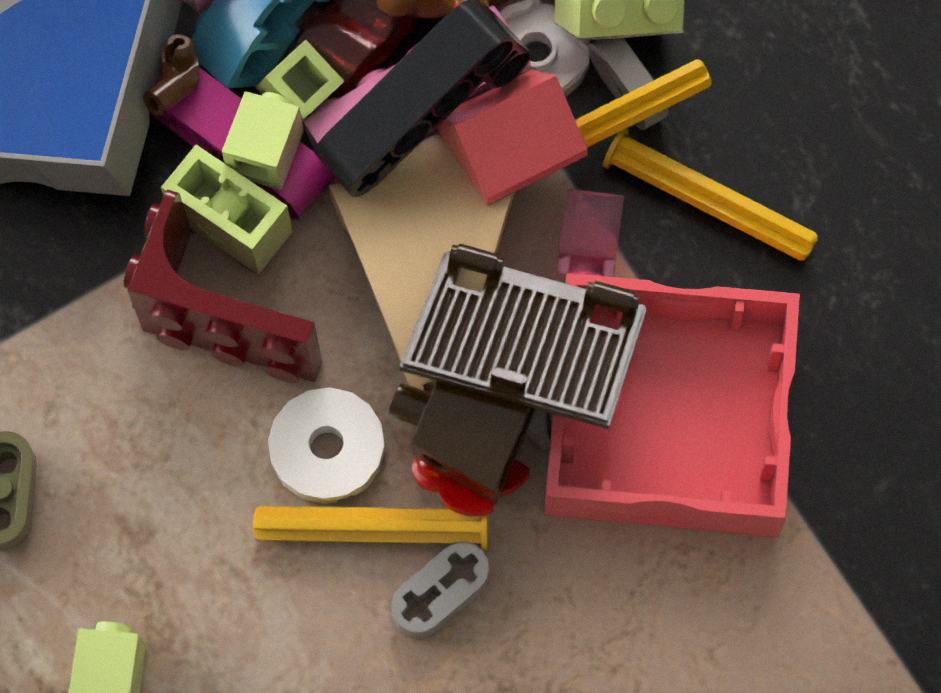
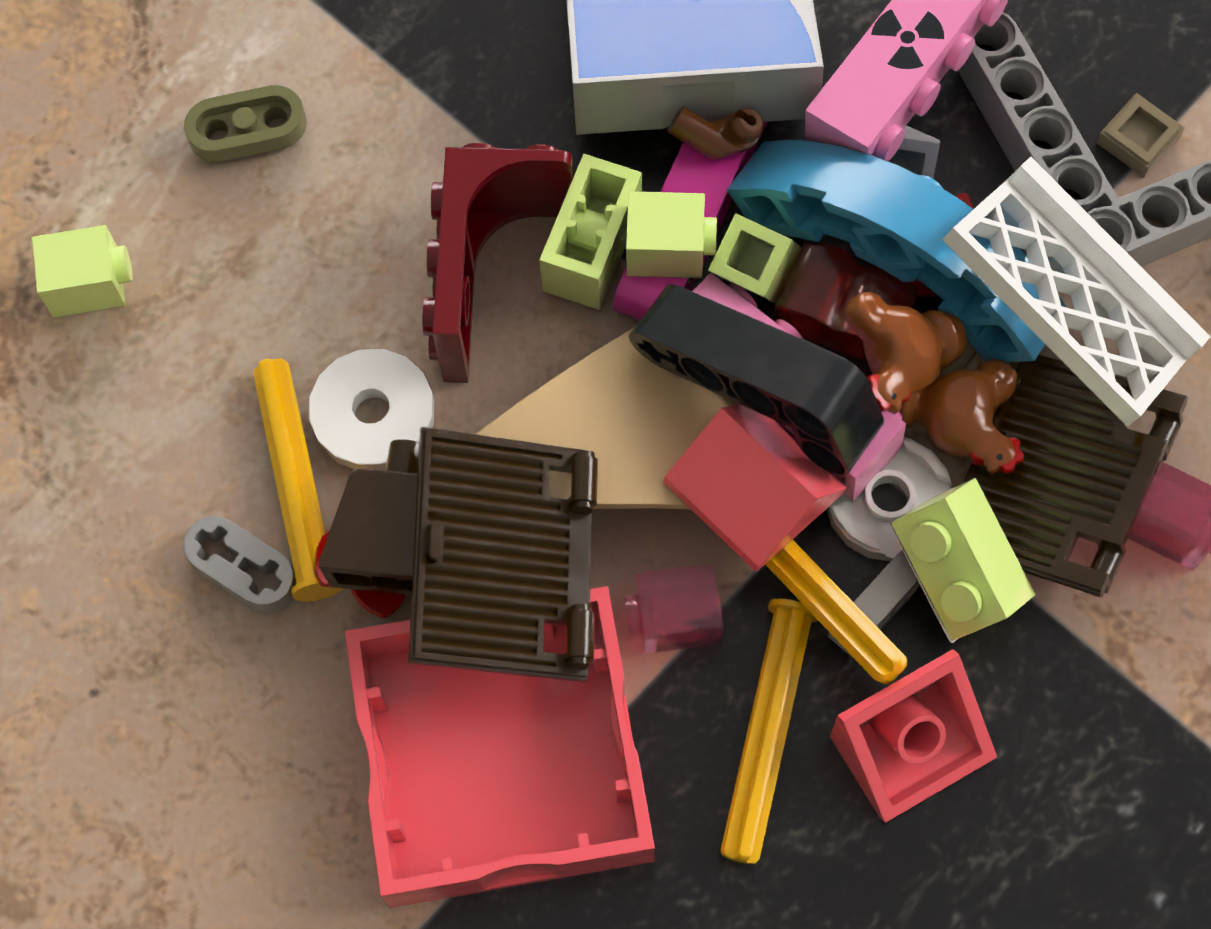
camera: 75 degrees right, 0 degrees up
(749, 88) = (914, 736): none -> coral slope

